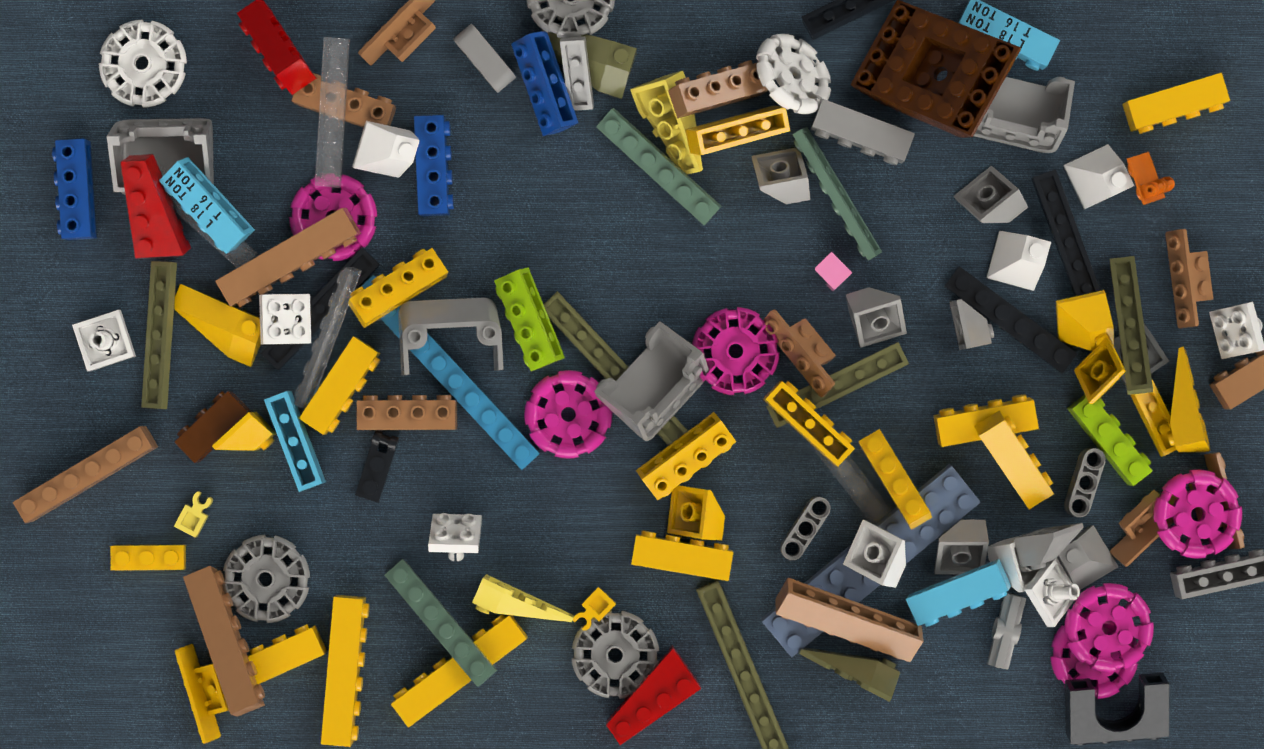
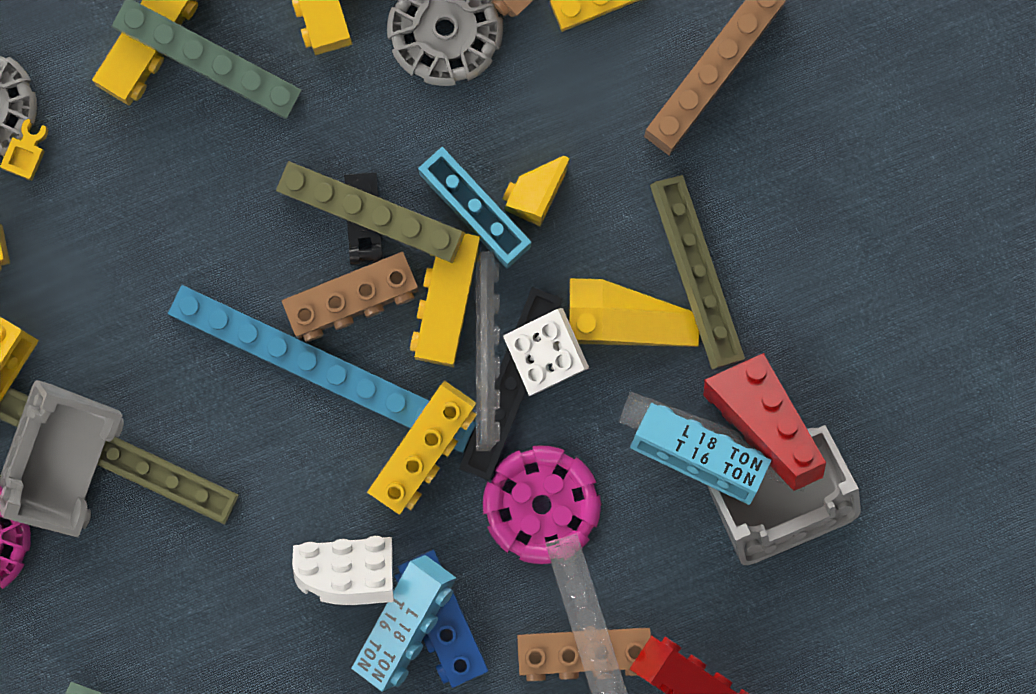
camera: 150 degrees right, 5 degrees down
(75, 189) = (875, 409): blue brick -> none
(88, 335) = (764, 215): white plate -> none
(153, 73) = (838, 605): white plate -> none
(192, 518) = (564, 66): light yellow plate -> none
(211, 426) = (585, 186): reddish brown brick -> none
(289, 257) = (573, 430): medium nougat brick -> none
(368, 467) = (370, 212): none -> olive plate
(385, 149) = (506, 615): white slope -> none
(419, 316) = (377, 423): light grey windscreen -> none
(455, 534) = (228, 167): white plate -> none
(457, 170) = (404, 623): none -> medium azure brick
(483, 223) = (346, 570): none -> white plate
(505, 599) = (137, 118): light yellow wedge -> none
(529, 319) = (244, 474): lime brick -> none
(554, 420) = (147, 356): dark pink plate -> none

